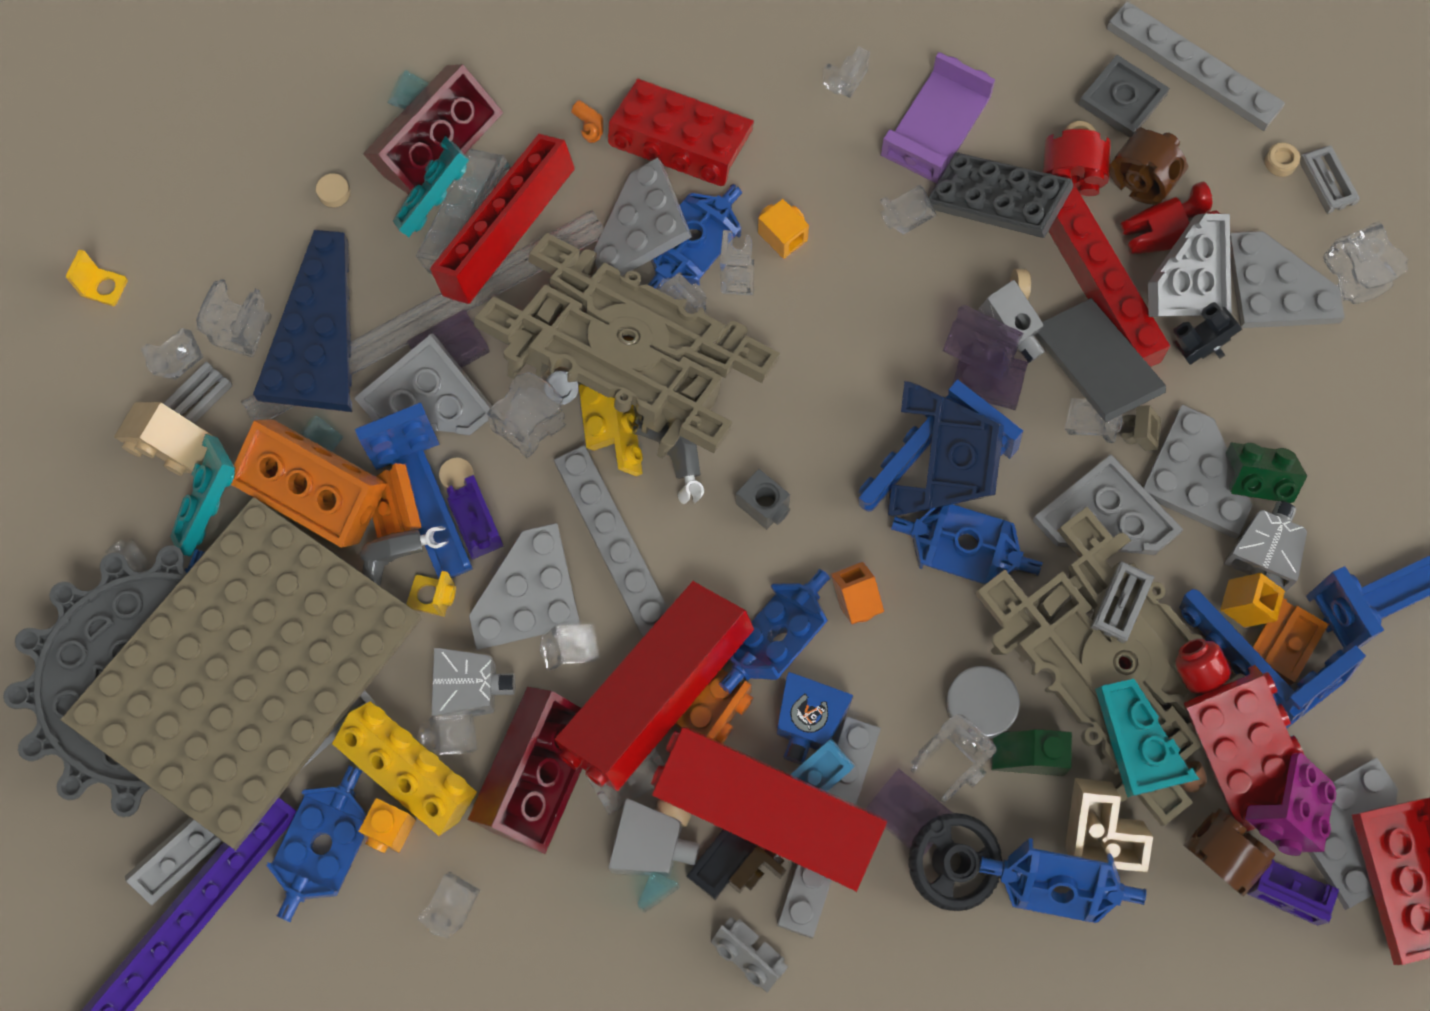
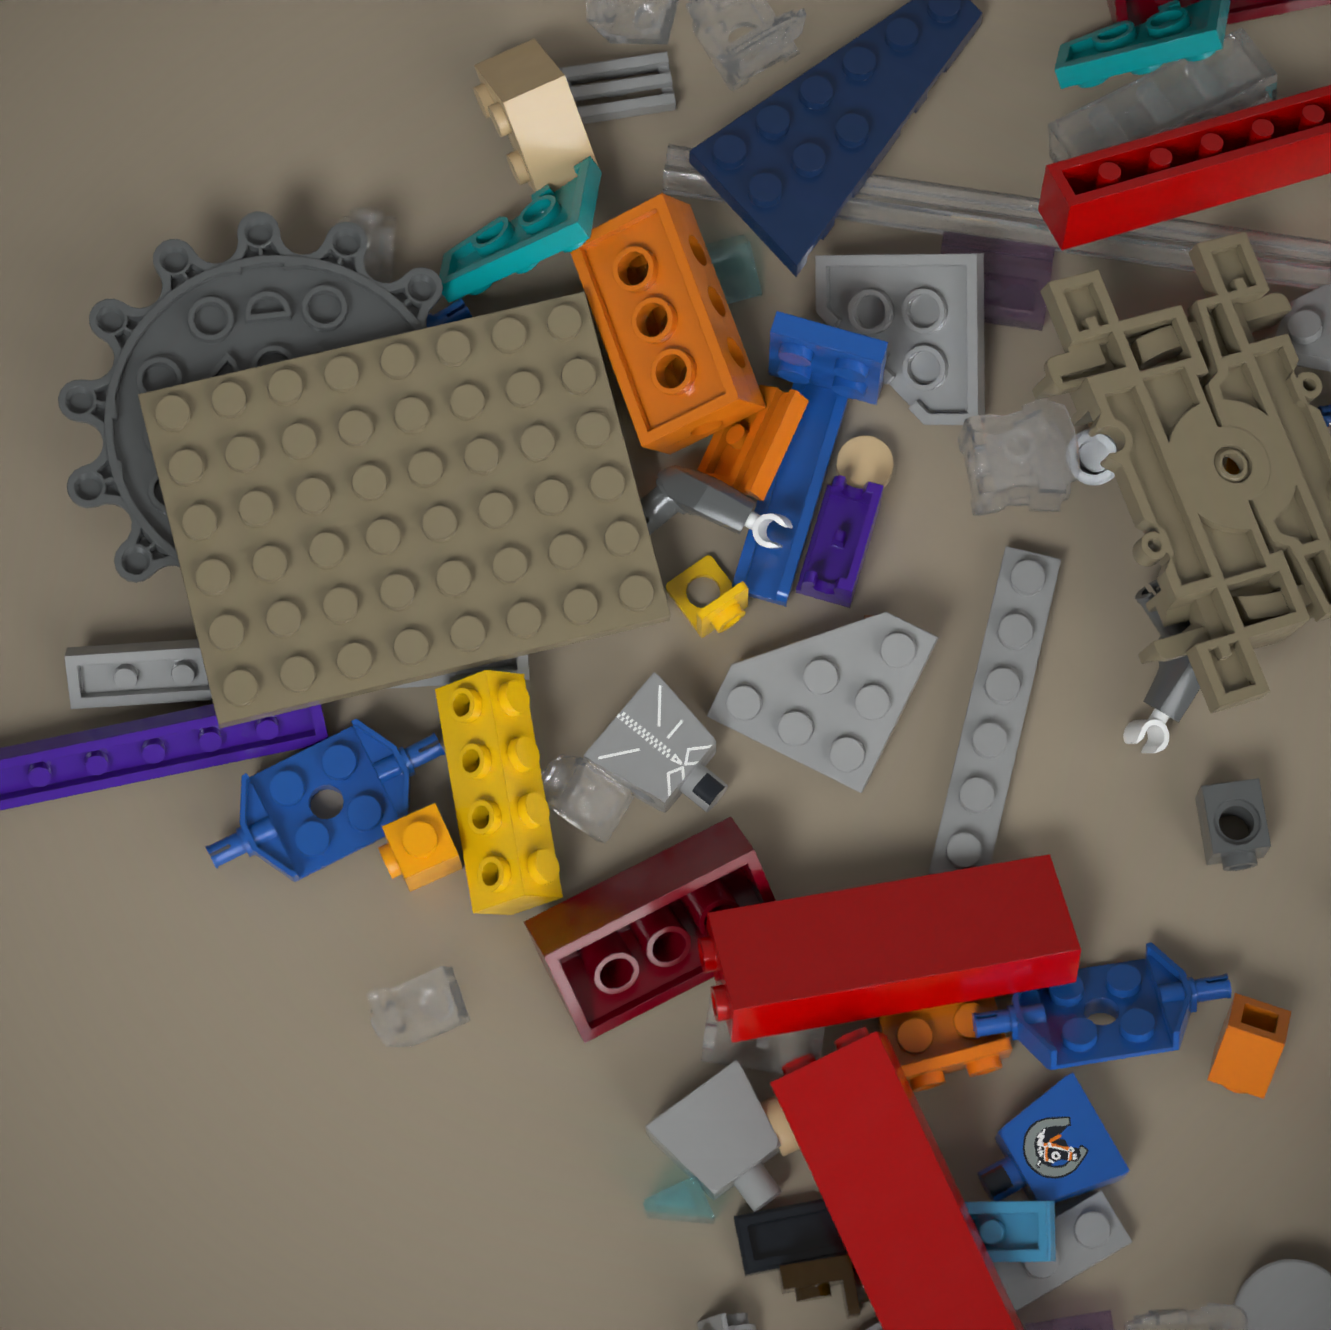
camera: 40 degrees right, 5 degrees up
(569, 645) = (826, 806): clear bracket -> none
(608, 426) = (1106, 560): yellow bracket -> none

